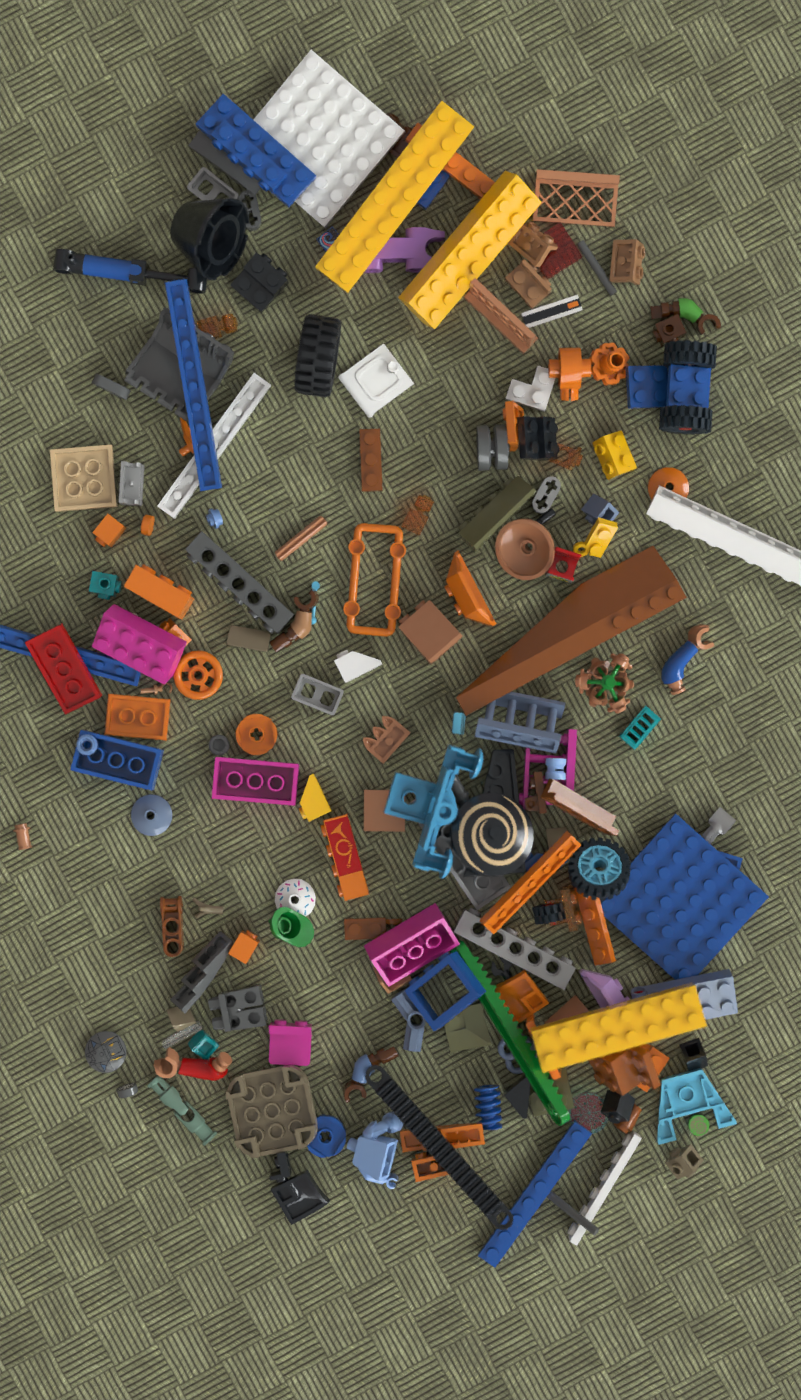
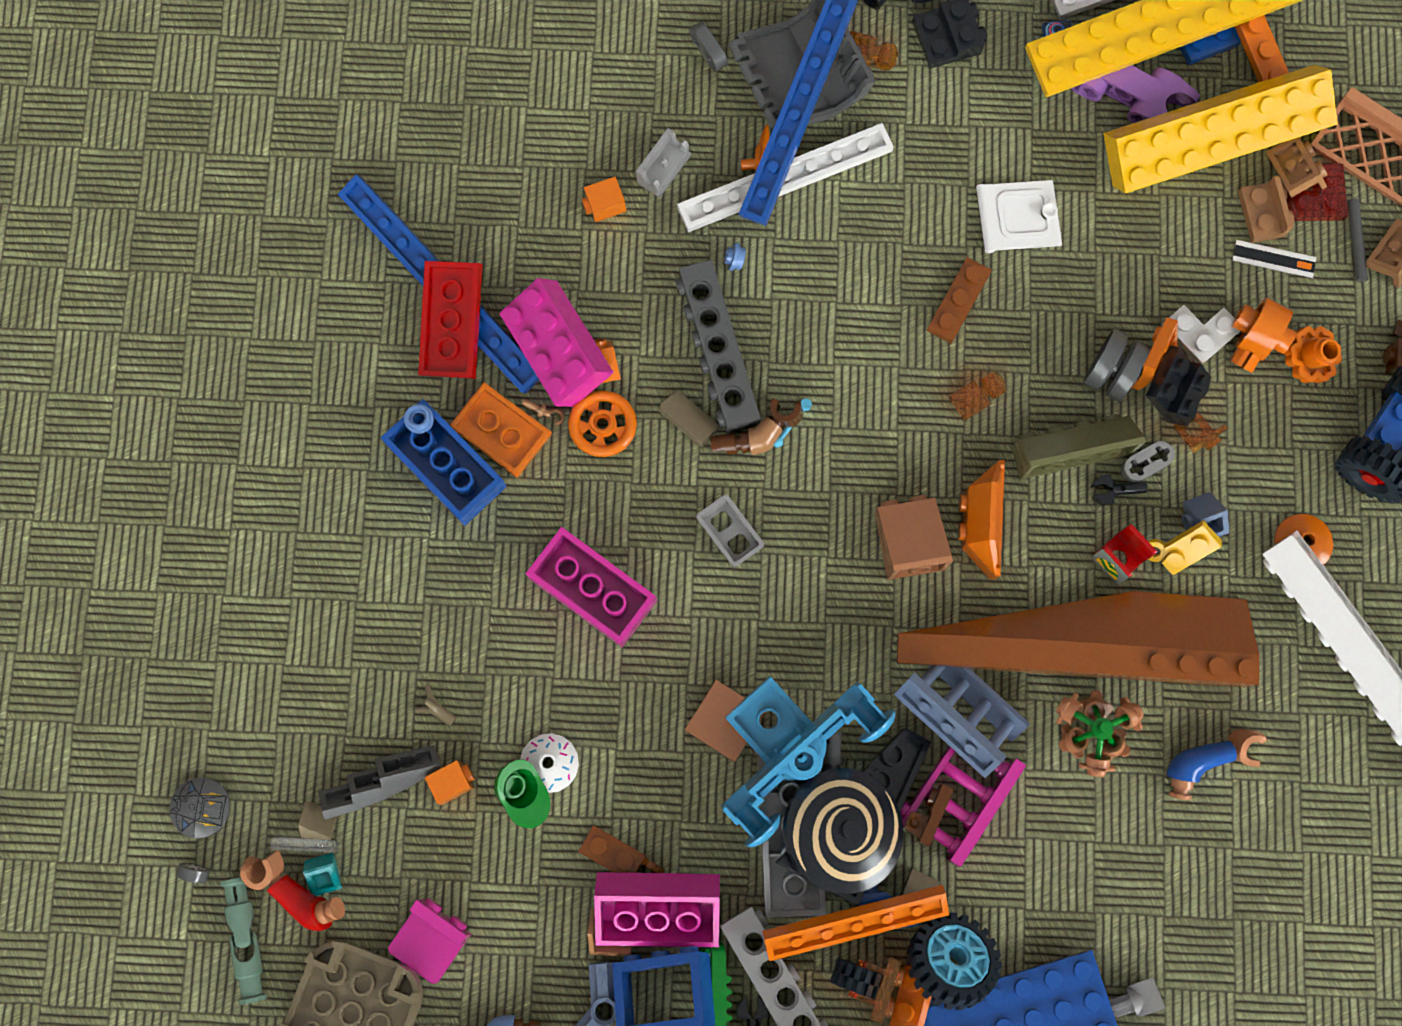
camera: 30 degrees right, 10 degrees down
(22, 836) = (275, 485): nougat pin -> none
(83, 478) = (612, 126): tan plate -> none
(105, 585) = (560, 256): teal brick -> none
(147, 525) = (652, 219): orange tile -> none
(159, 591) = (619, 297): orange brick -> none
(162, 815) = (449, 567): sand blue dish -> none
(175, 914) = (383, 685): dark orange piece -> none
(219, 745) = (575, 520): dark grey tile -> none
(233, 1012) = (384, 853): dark grey hips -> none
(265, 742) = (621, 519): orange plate -> none
(299, 539) = (822, 339): nougat axle -> none
(313, 800) = (646, 655): yellow slope -> none
(317, 355) = (971, 137): black tyre -> none
(345, 856) = (642, 749): brick -> none
(355, 664) = (798, 523): white slope -> none
(357, 548) = (881, 486): orange bar -> none
(387, 740) = (780, 637): nougat plate -> none
(458, 723) = (882, 667): medium azure tile -> none
(500, 316) = (1214, 223): nougat fence -> none
(514, 553) = (1070, 501): nougat dish -> none
(552, 764) = (971, 797): light blue wheel -> none
(579, 807) = (973, 866): fence -> none
(614, 454) = (1258, 463): yellow bracket -> none
(634, 744) = (1083, 823): teal slope -> none
(646, 386) = (1344, 406): blue plate -> none

